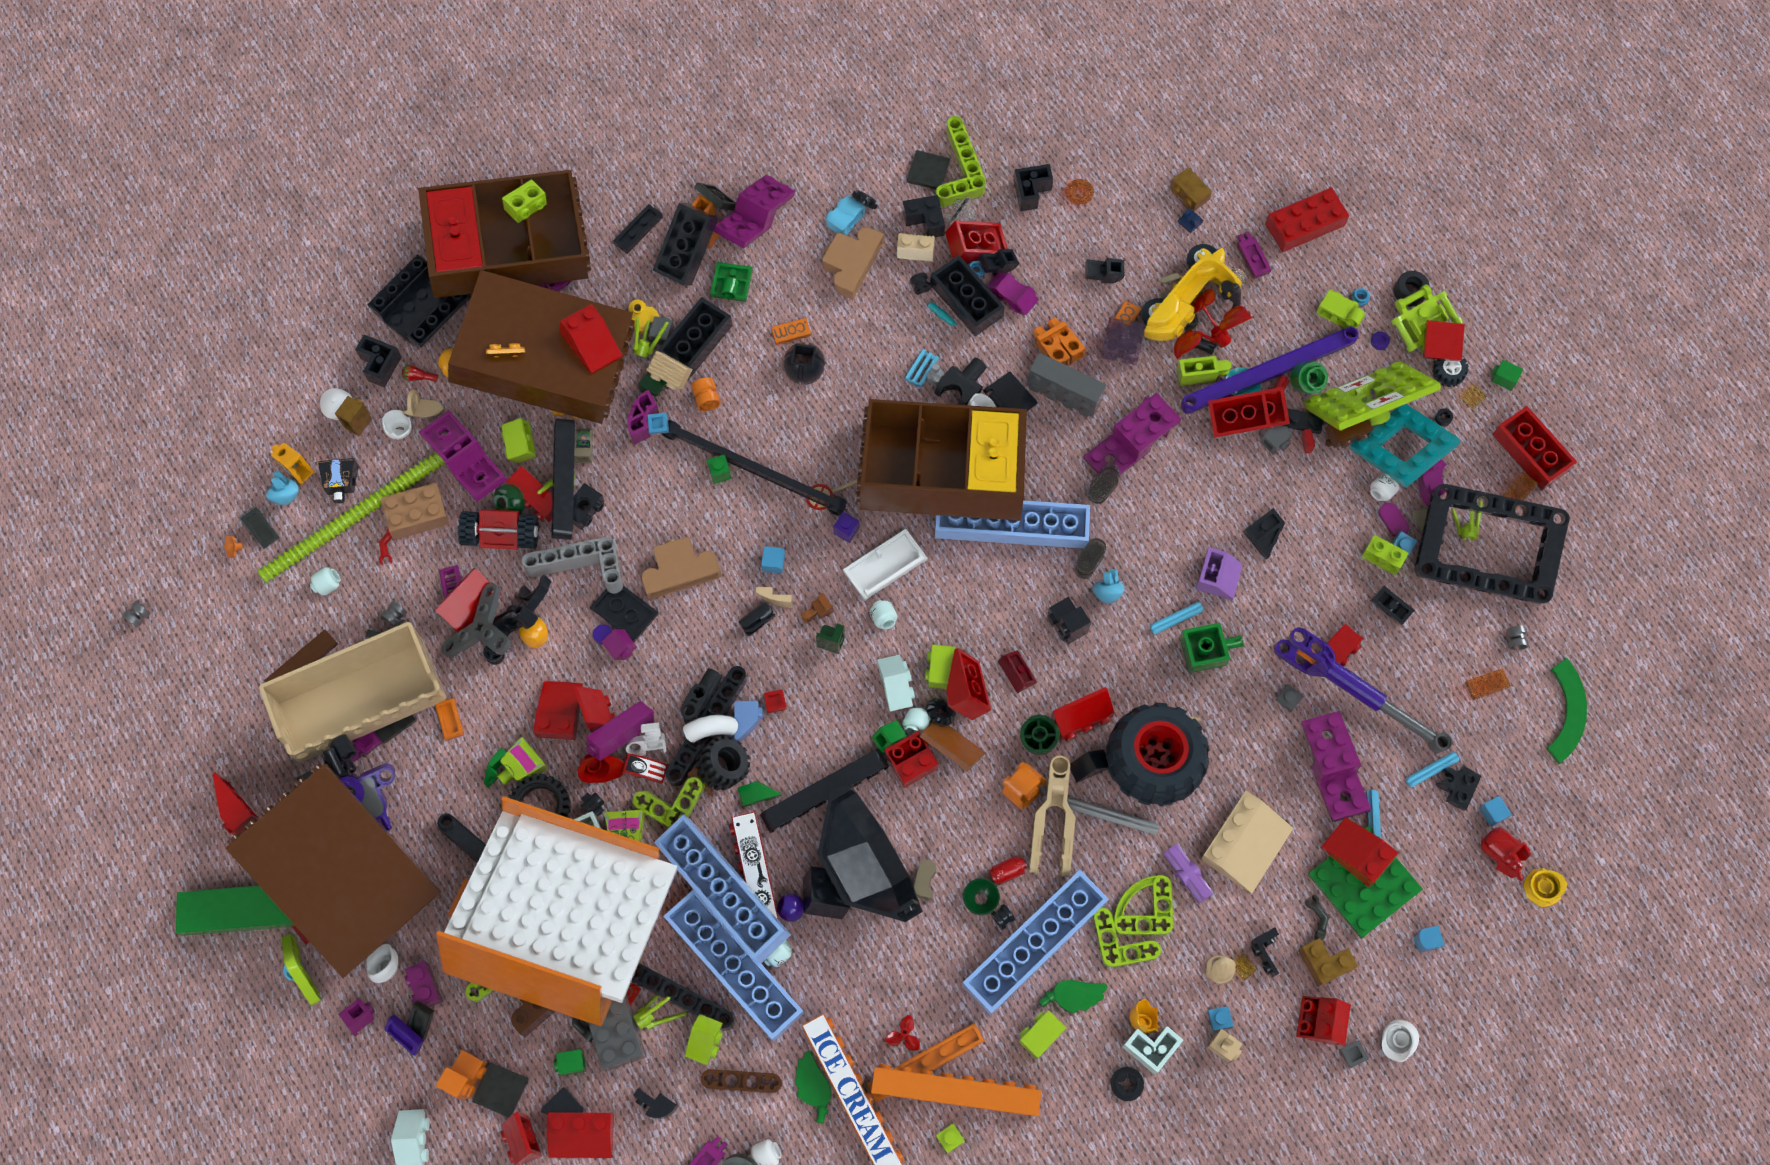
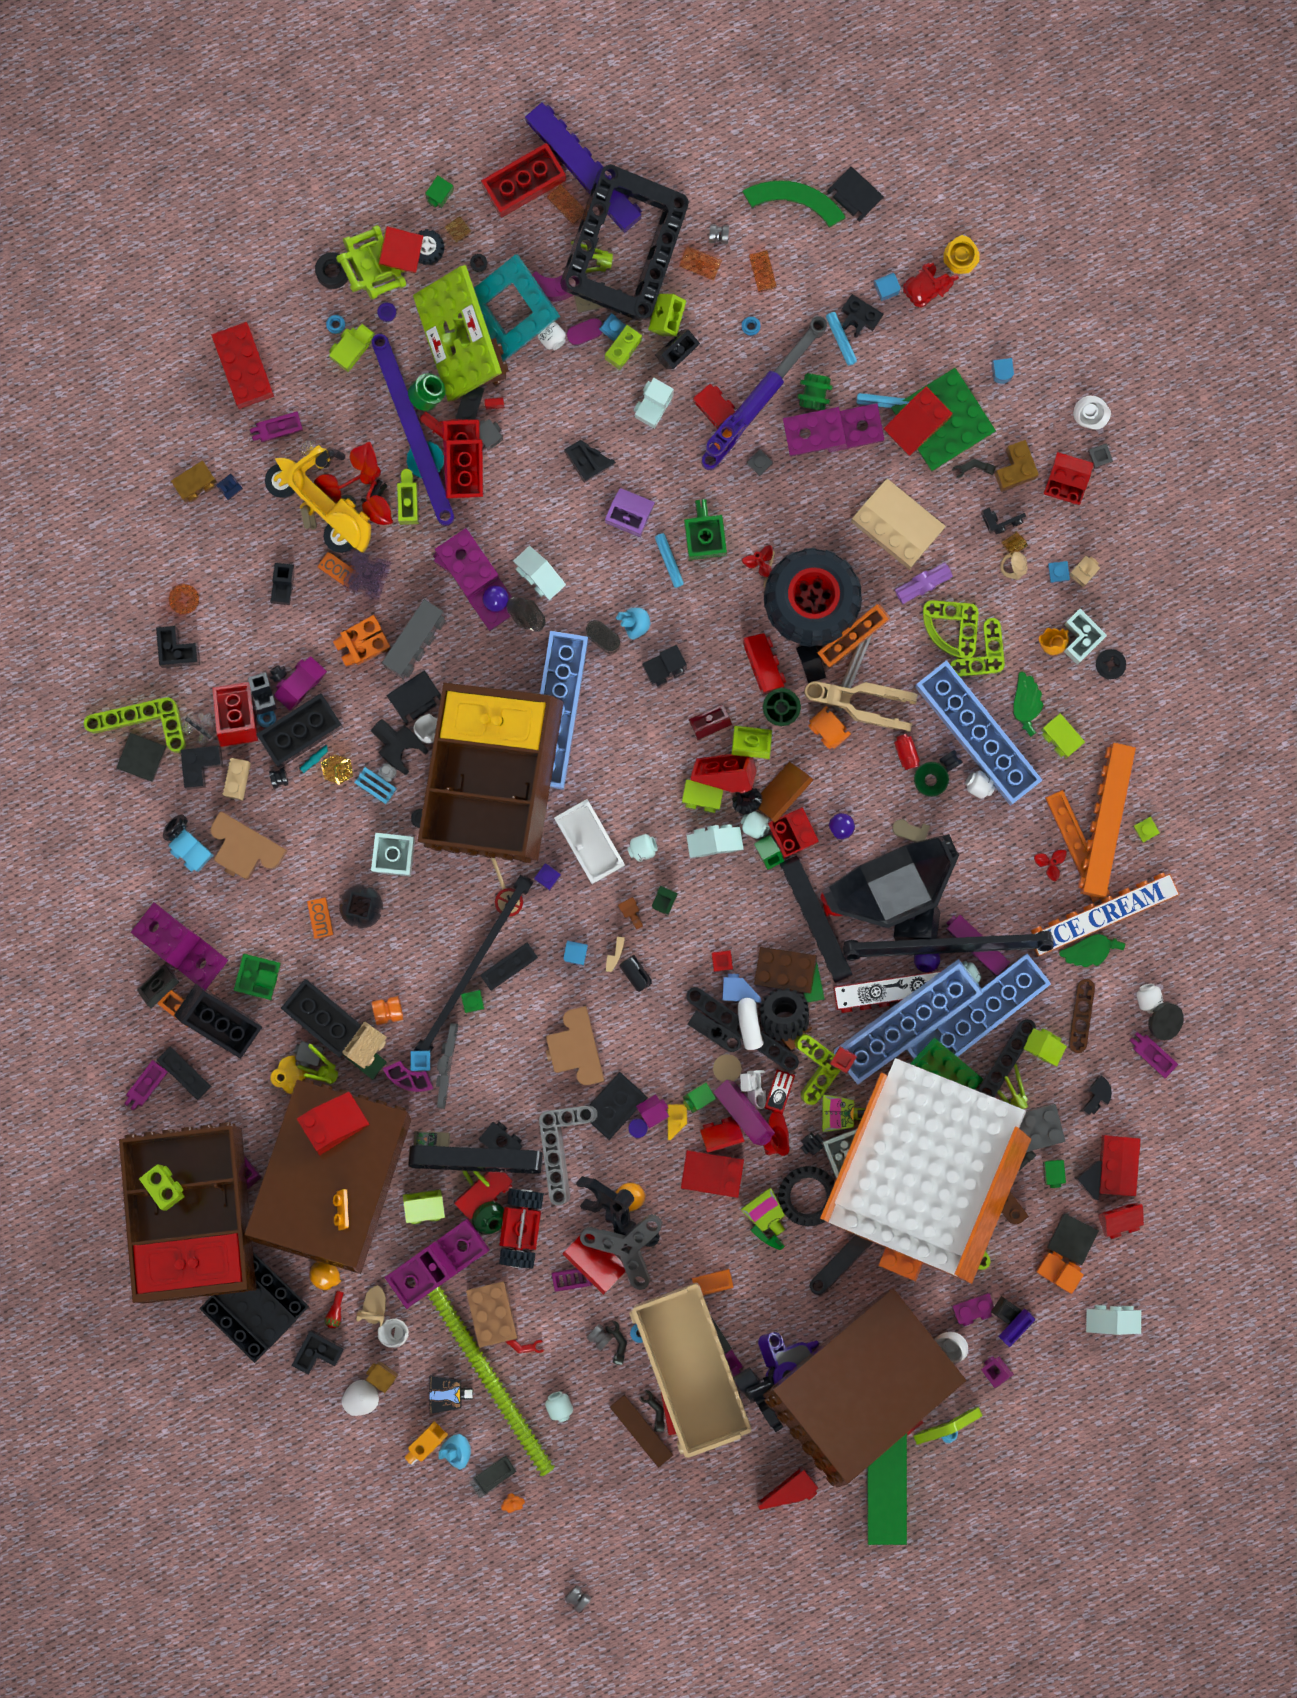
camera: 85 degrees left, 15 degrees up
(613, 671) = (677, 1119): none -> yellow tile
(625, 198) = (145, 1085): none -> magenta hinge
(634, 687) = (698, 1098): none -> green brick
(652, 442) = (444, 1065): none -> dark grey piece
(668, 716) = (727, 1067): none -> tan piece
(671, 932) = (943, 1062): none -> green plate
(677, 822) = (843, 1059): none -> red plate
(756, 500) = (509, 966): none -> black plate
(769, 764) = (785, 970): none -> reddish brown plate
(809, 959) = (992, 960): none -> magenta brick
(816, 1026) = (854, 950): none -> black piece
(855, 385) = (393, 854): none -> light aqua brick
(923, 808) = (842, 826): none -> dark purple piece
(934, 332) = (337, 769): none -> clear yellow panel
(980, 949) = (980, 784): none -> white head
(1000, 710) = (751, 742): none -> lime plate
(1019, 274) = (277, 673): none -> black plate
(1115, 453) = (495, 598): none -> dark purple piece
(1123, 803) = (854, 636): none -> orange brick
(1145, 493) = (538, 572): none -> light aqua brick
(1188, 699) = (760, 558): none -> red plant
(1334, 589) = (655, 401): none -> light aqua brick
(1372, 744) = (814, 391): none -> green piece
(1425, 593) = (667, 315): none -> lime brick
(1433, 674) = (753, 320): none -> dark azure plate
(1484, 624) = (700, 263): none -> clear orange slope
(1563, 497) = (579, 162): none -> dark purple brick
(1587, 772) = (855, 193): none -> black piece

